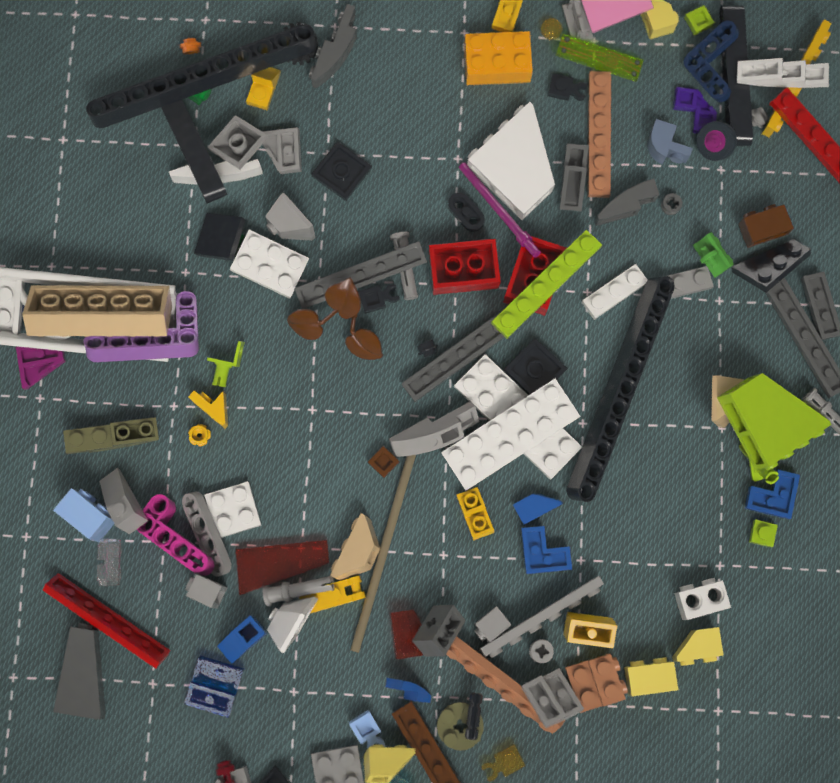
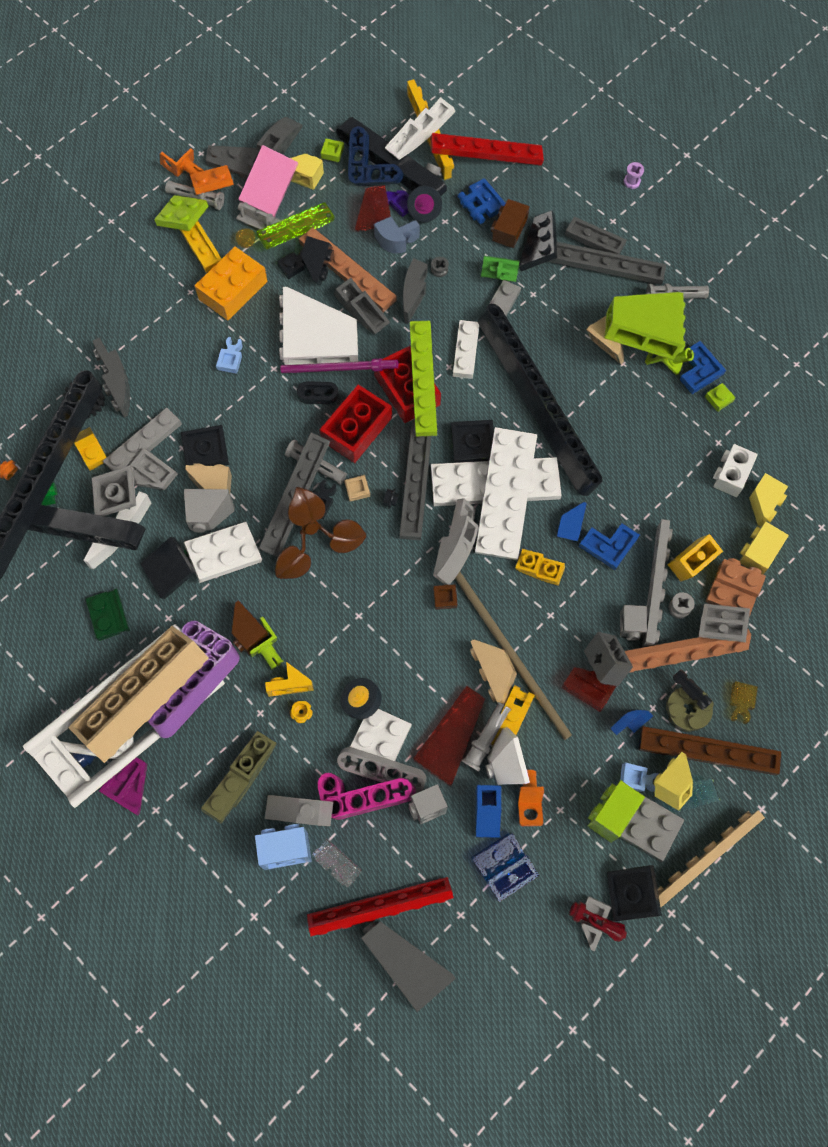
camera: 45 degrees left, 10 degrees down
(148, 227) = (107, 614): none -> dark green plate
(224, 338) = (246, 630): none -> reddish brown slope
(246, 470) = (361, 698): none -> black wheel
(281, 663) = (530, 798): none -> orange bracket
(304, 119) = (146, 437): none -> light grey plate
(317, 202) = (210, 476): none -> tan slope
(321, 735) = (616, 811): none -> lime brick
(414, 315) = (357, 488): none -> tan tile
(432, 118) = (230, 358): none -> light blue plate
(580, 102) = (316, 257): none -> black slope
(673, 104) = (373, 208): none -> clear red wing
(774, 183) = (485, 196): none -> blue plate

